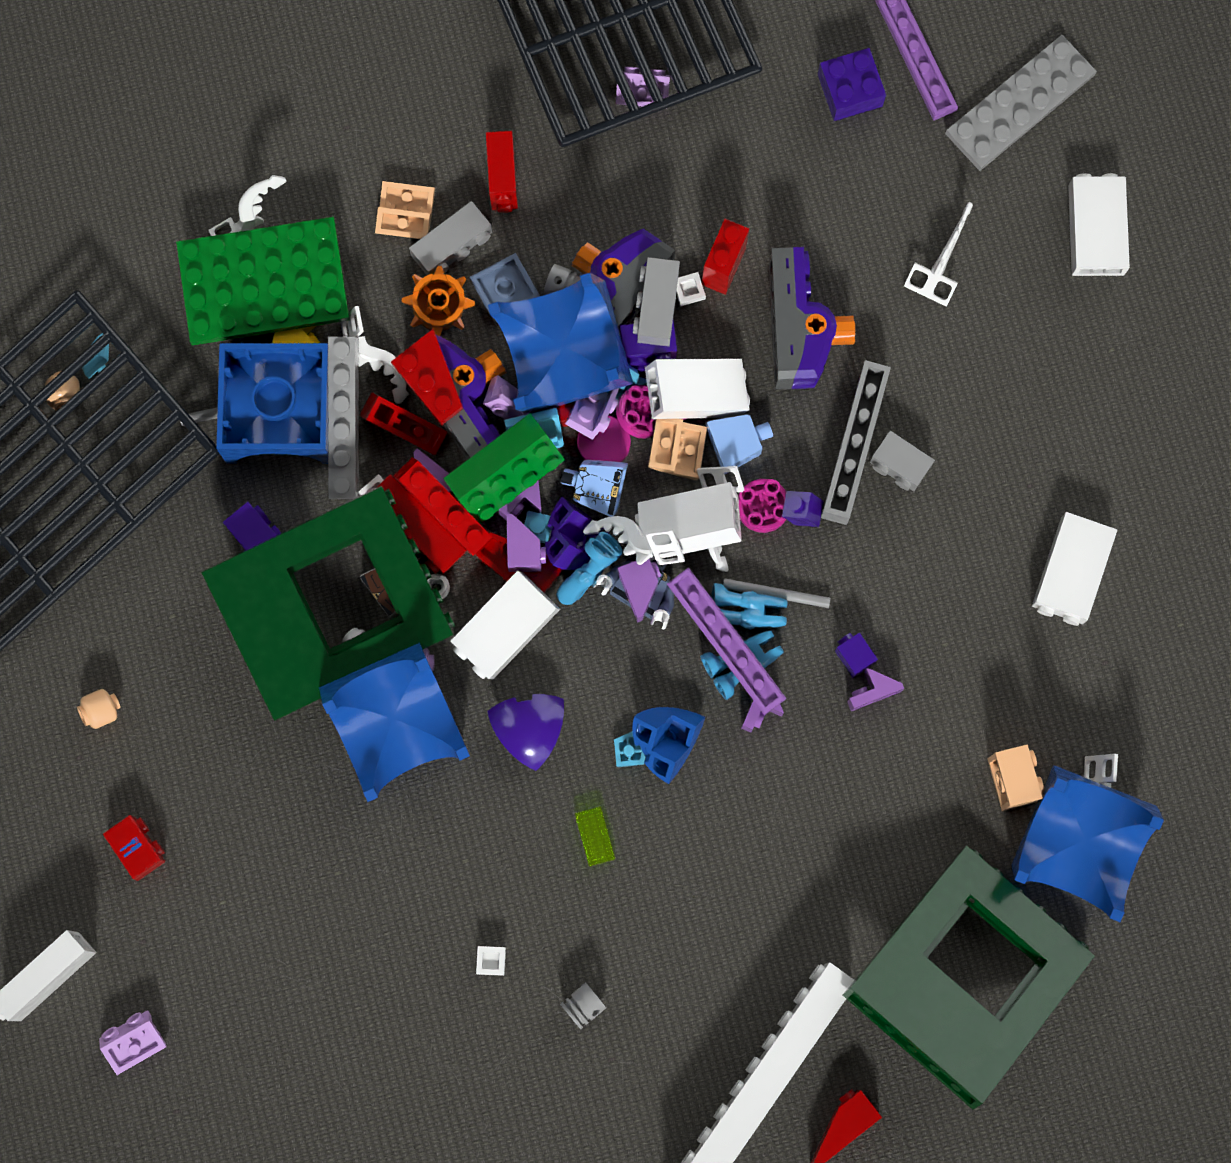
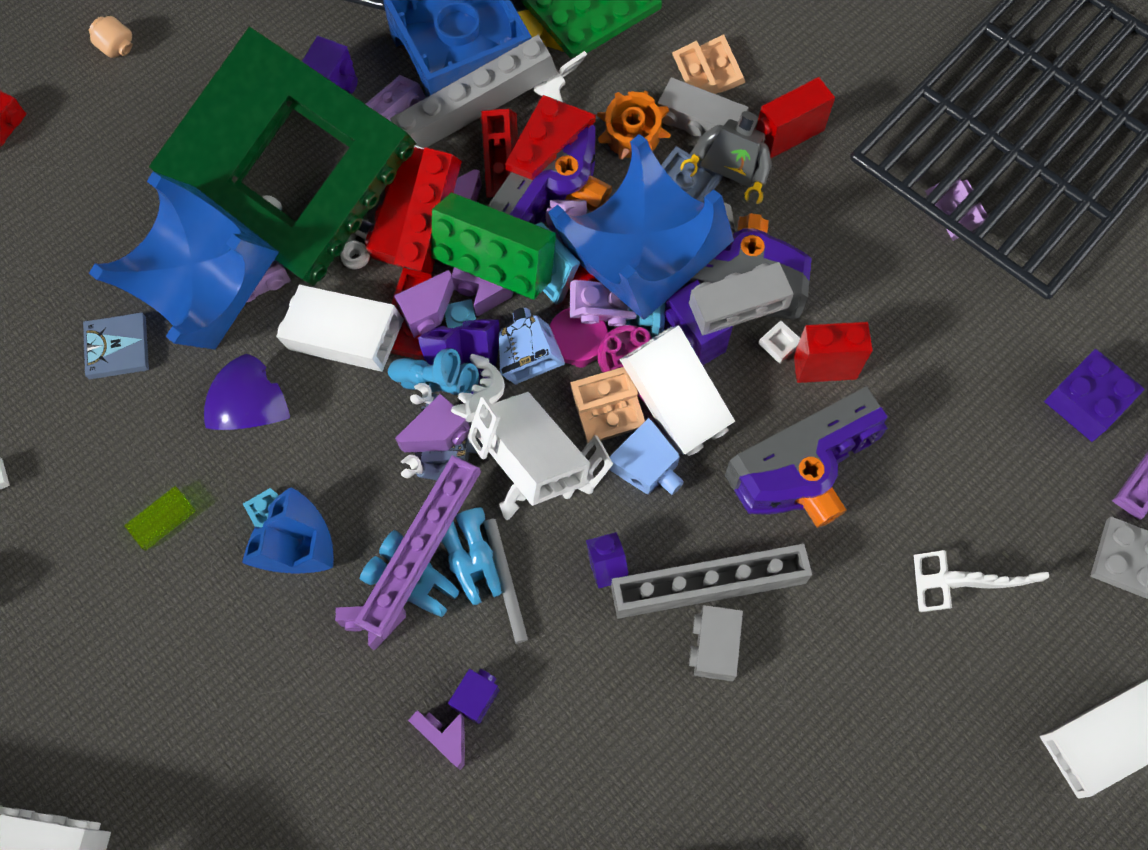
camera: 65 degrees right, 10 degrees down
(304, 490) = (396, 97): none -> lavender bracket
(420, 817) = (115, 346): none -> sand blue tile
(509, 234) = (735, 153): none -> dark grey torso
(762, 505) = (592, 516): dark pink tile -> none

